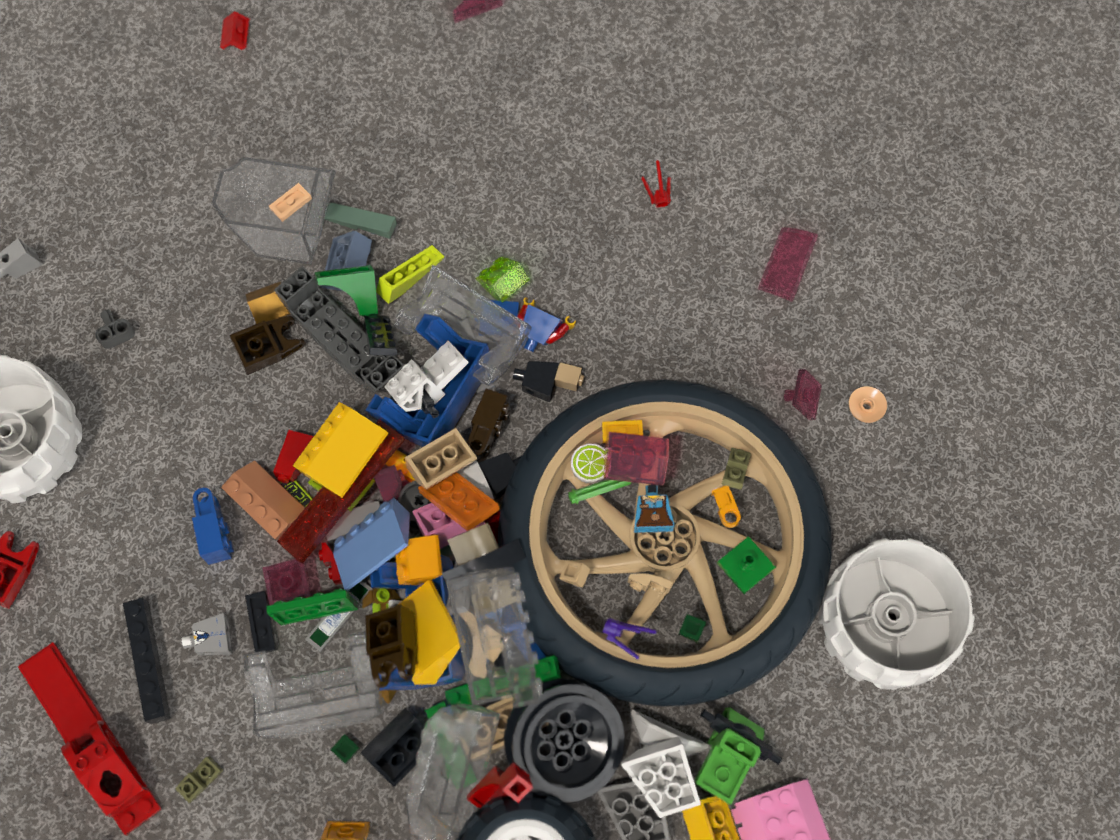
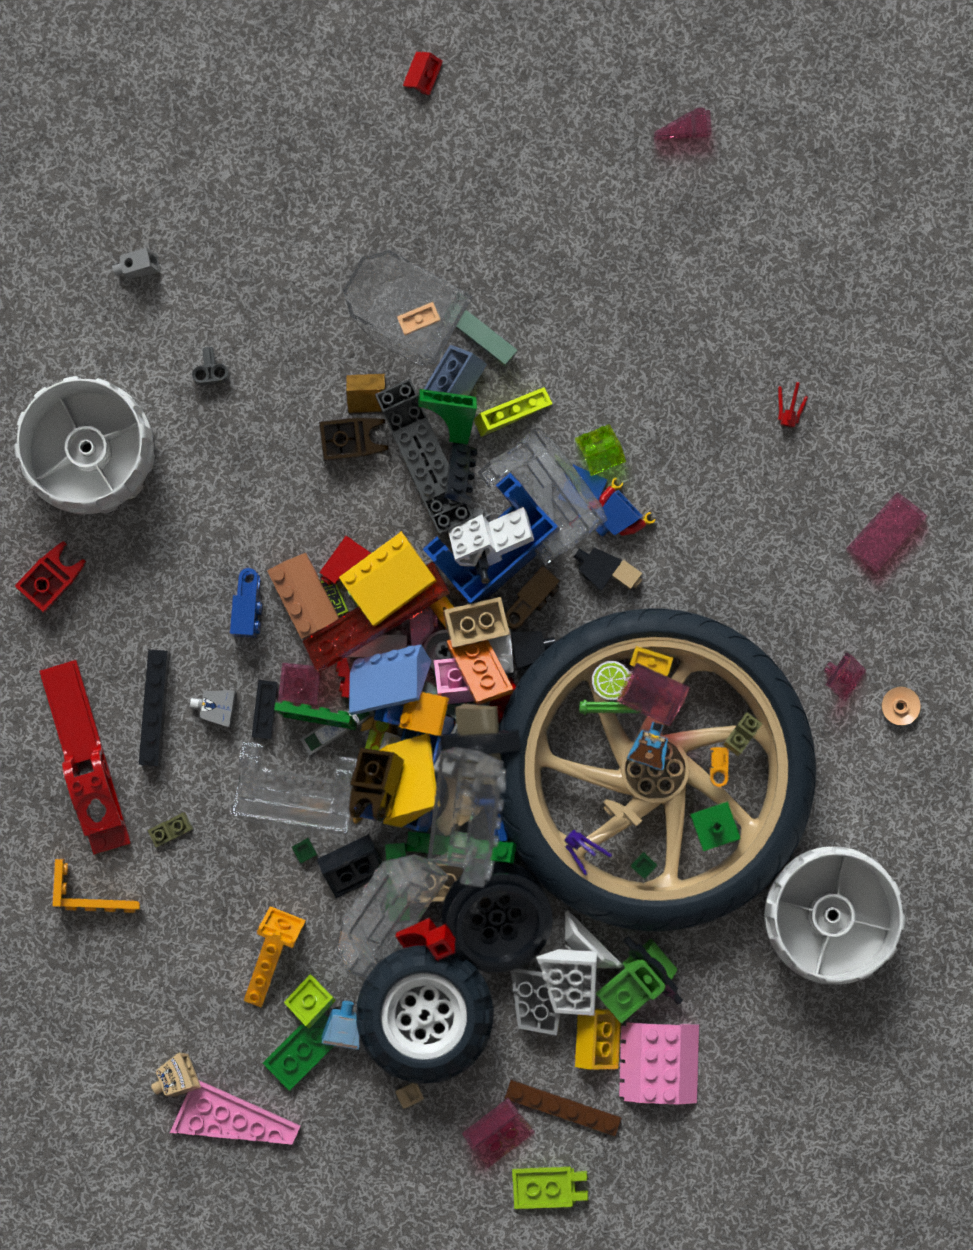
camera: 25 degrees right, 15 degrees up
(574, 573) = (558, 777): tan slope -> none

